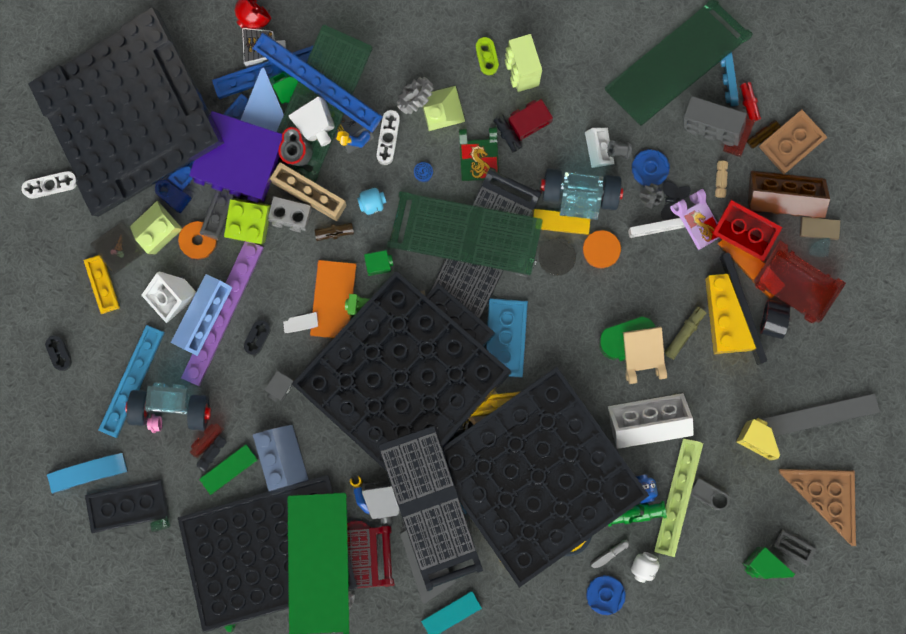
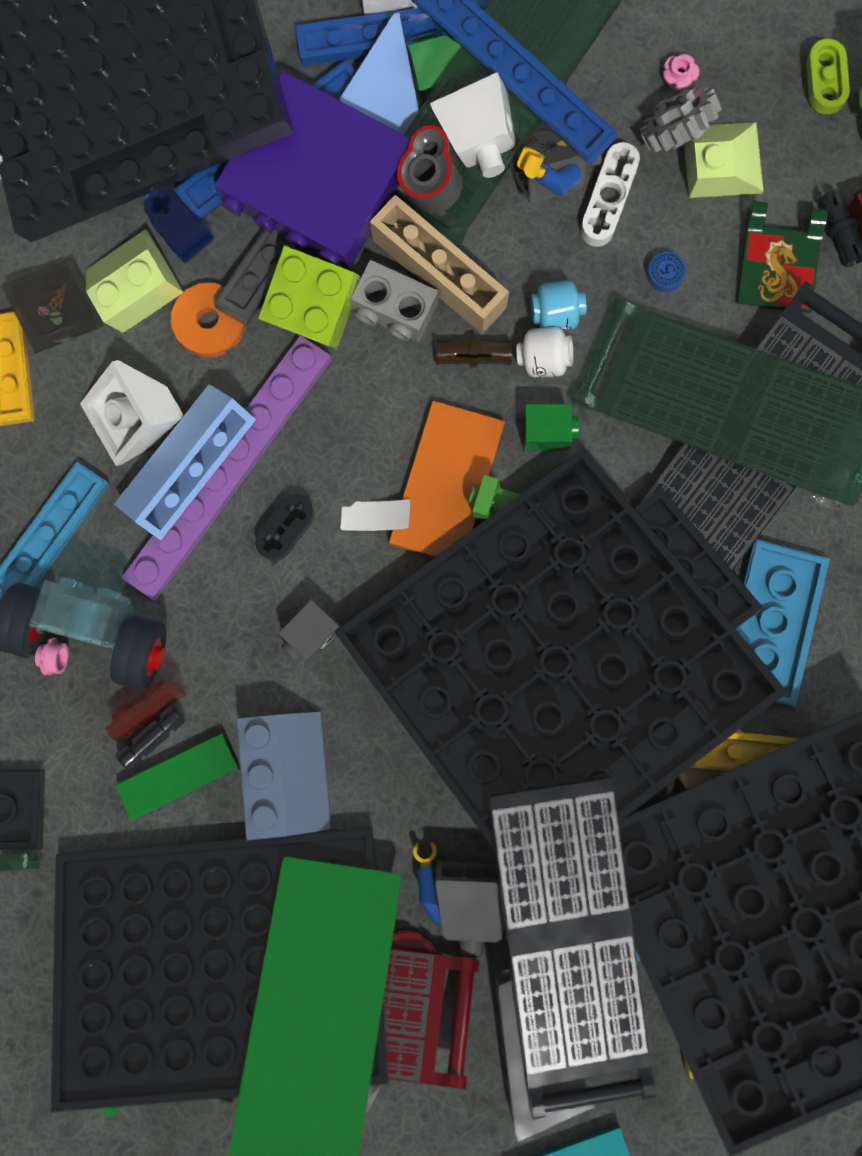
camera: 15 degrees right, 0 degrees up
(369, 225) = (545, 352): none -> white head
(412, 71) = (676, 79): none -> bright pink plate

